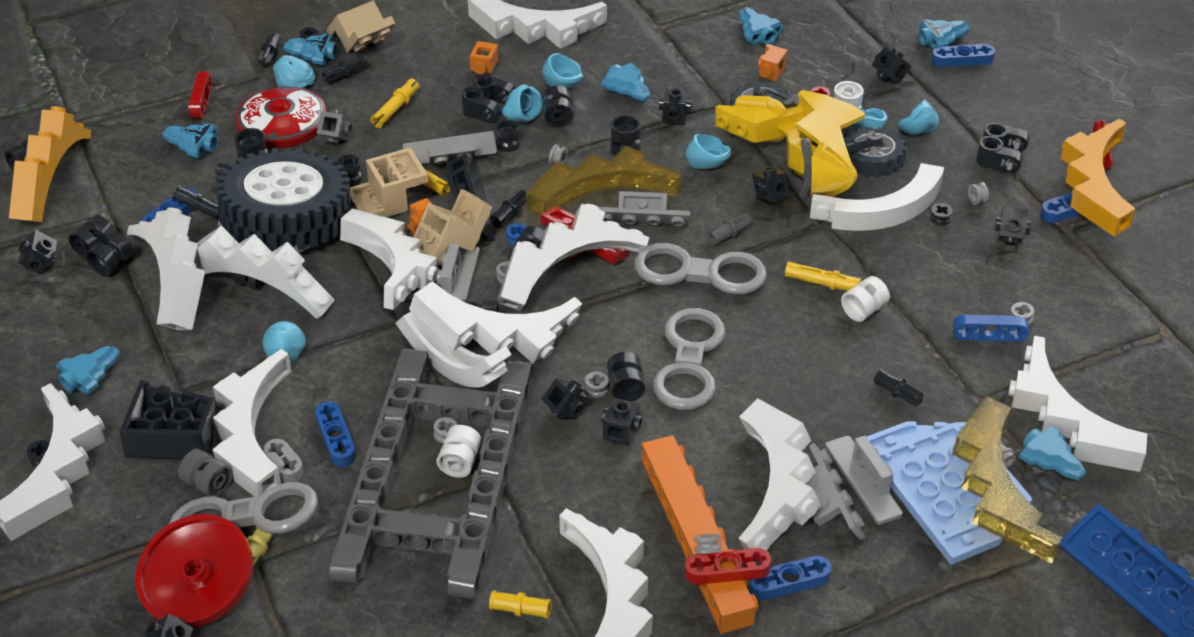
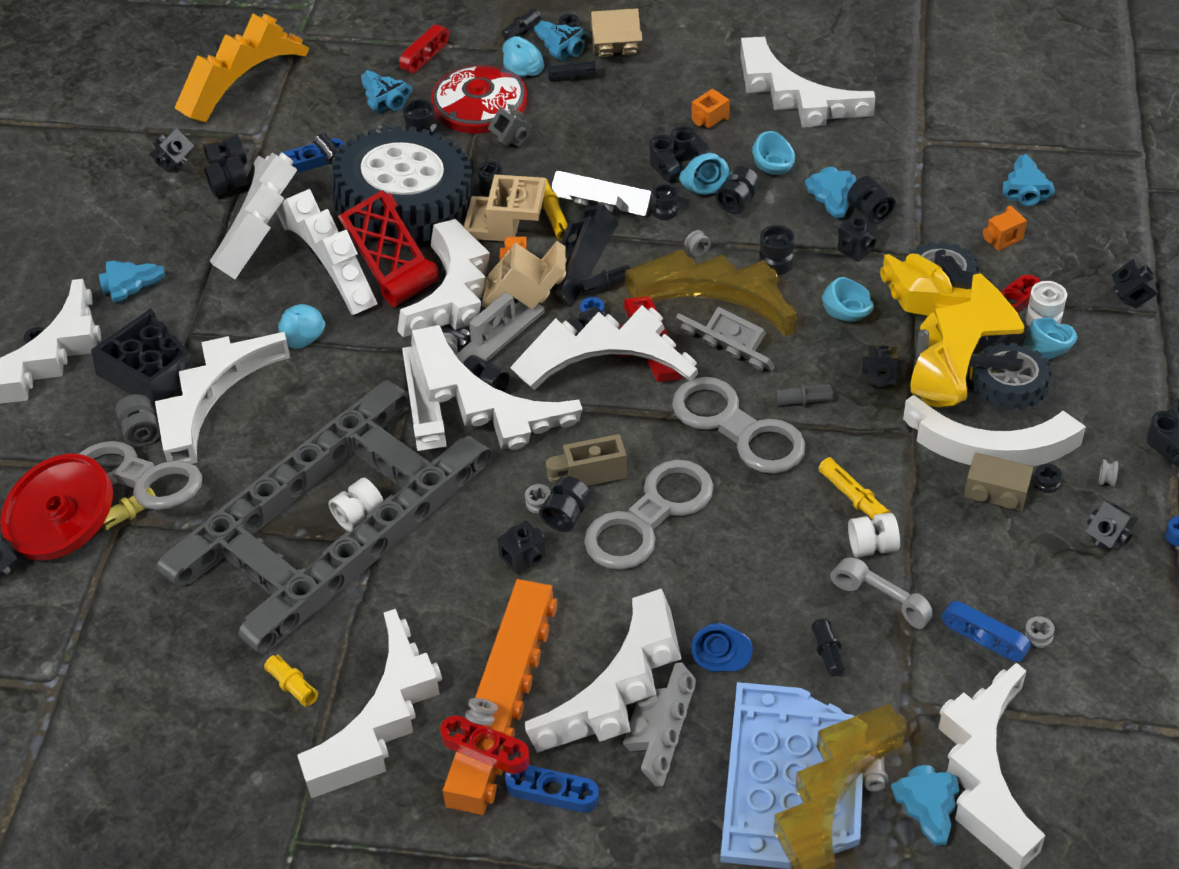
camera: 35 degrees right, 5 degrees up
(288, 458) = (218, 440): light grey beam -> none
(333, 443) = (275, 446): blue beam -> none
(346, 267) = (412, 275): none -> red piece
(400, 97) = (598, 121): yellow pin -> none
(443, 423) = (370, 469): light grey bush -> none
(566, 398) = (489, 499): black brick -> none
(624, 333) = (590, 461): none -> dark tan brick
(660, 76) = (871, 199): none -> black wheel
(829, 420) = (721, 648): none -> blue hat
(866, 475) = (709, 726): light grey bracket -> none
(872, 333) = (853, 572): none -> light grey piece
(914, 228) = (998, 481): none -> dark tan brick
(921, 121) = (1113, 360): medium azure hair -> none

